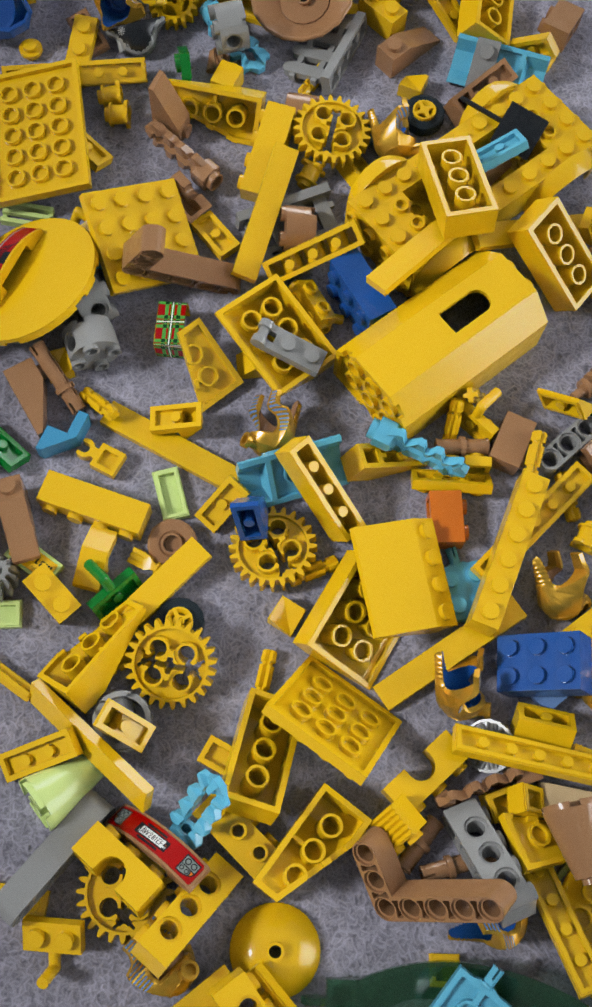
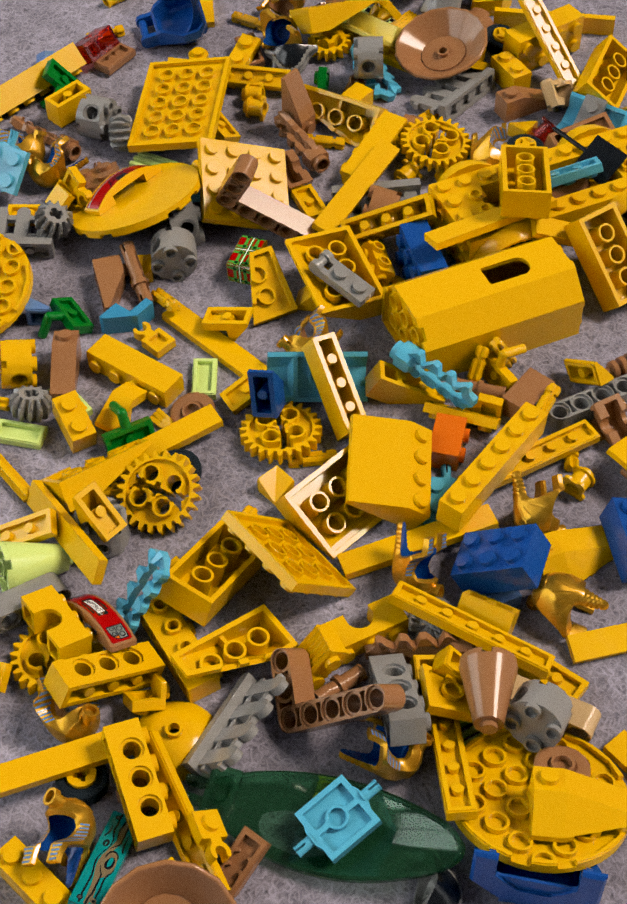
camera: 20 degrees right, 20 degrees down
(208, 145) = (328, 141): none -> yellow axle
(235, 918) = (148, 700): none -> yellow bracket
(323, 932) = (234, 724): none -> light grey fence
(439, 86) = (543, 129): none -> clear red brick
(441, 34) = (556, 93): none -> tan cylinder

